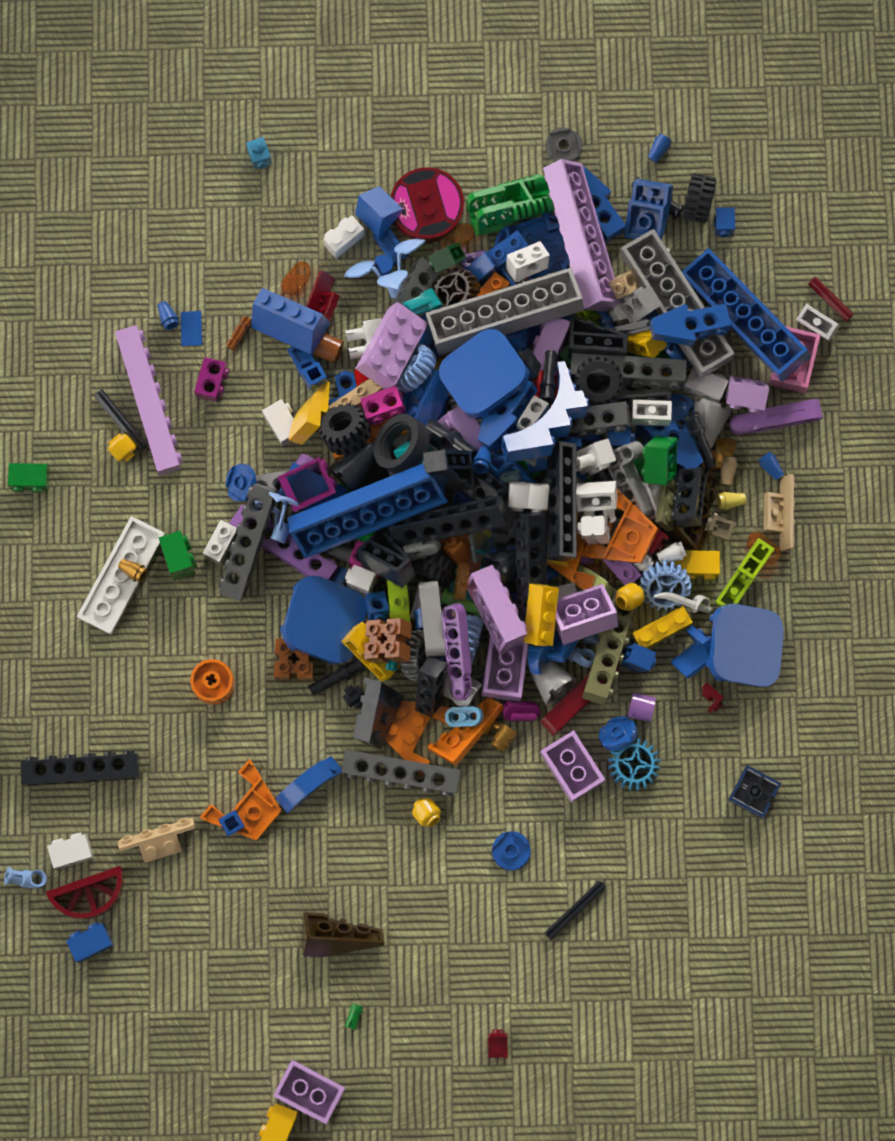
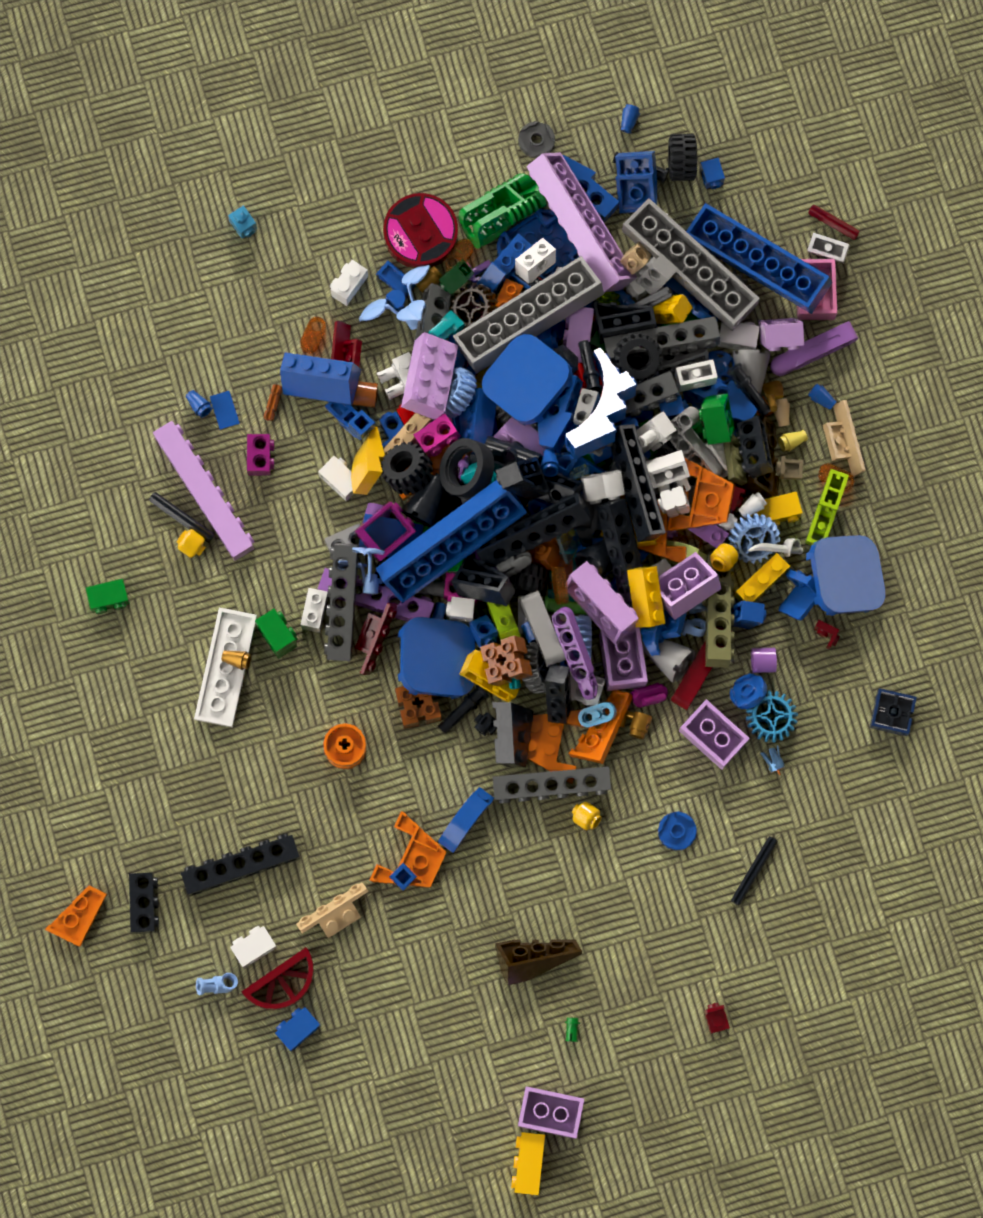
camera: 20 degrees left, 0 degrees up
(239, 481) = (317, 546): blue tile -> none
(269, 583) = (373, 635): none -> dark red bracket
(377, 210) = (374, 248): blue slope -> none
(400, 440) = (463, 464): none -> medium lavender piece
(423, 251) = (432, 276): none -> pearl gold cone
(626, 810) = (777, 762): none -> flat silver piece
(672, 324) = (694, 286): blue brick -> none

